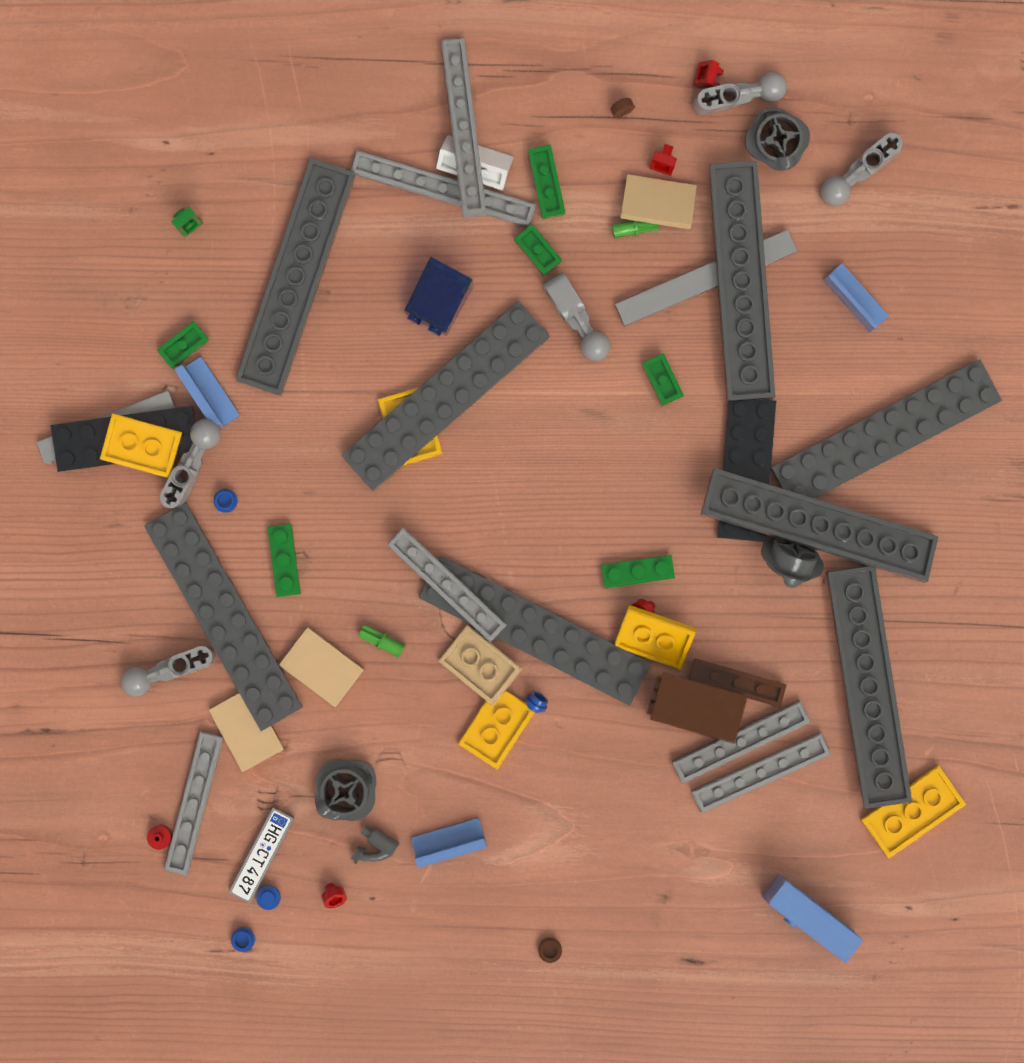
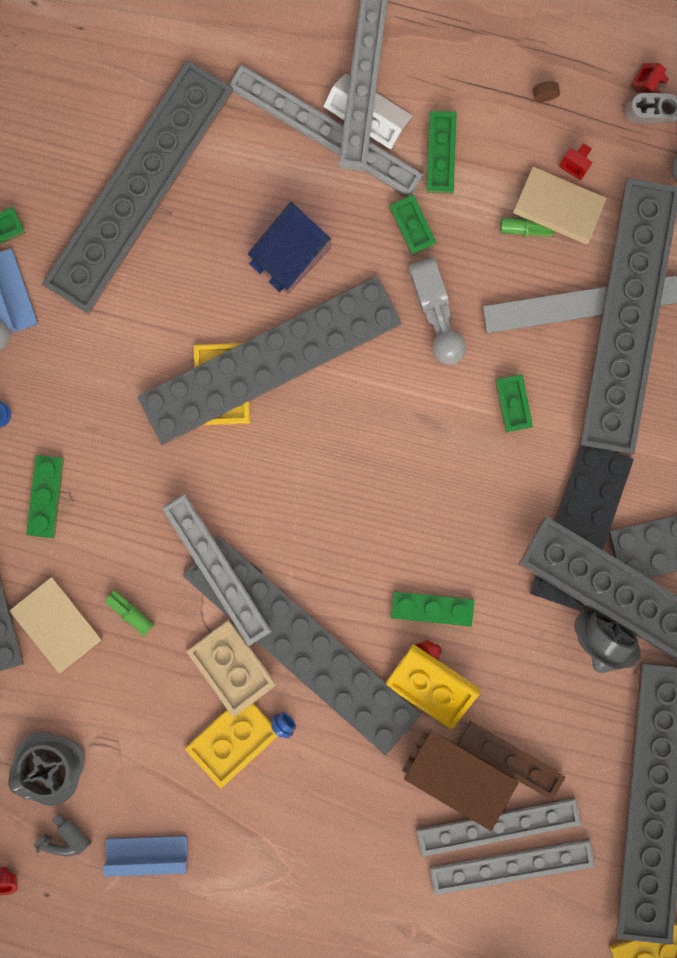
camera: 15 degrees right, 0 degrees up
(186, 221) = (31, 94): green plate -> none

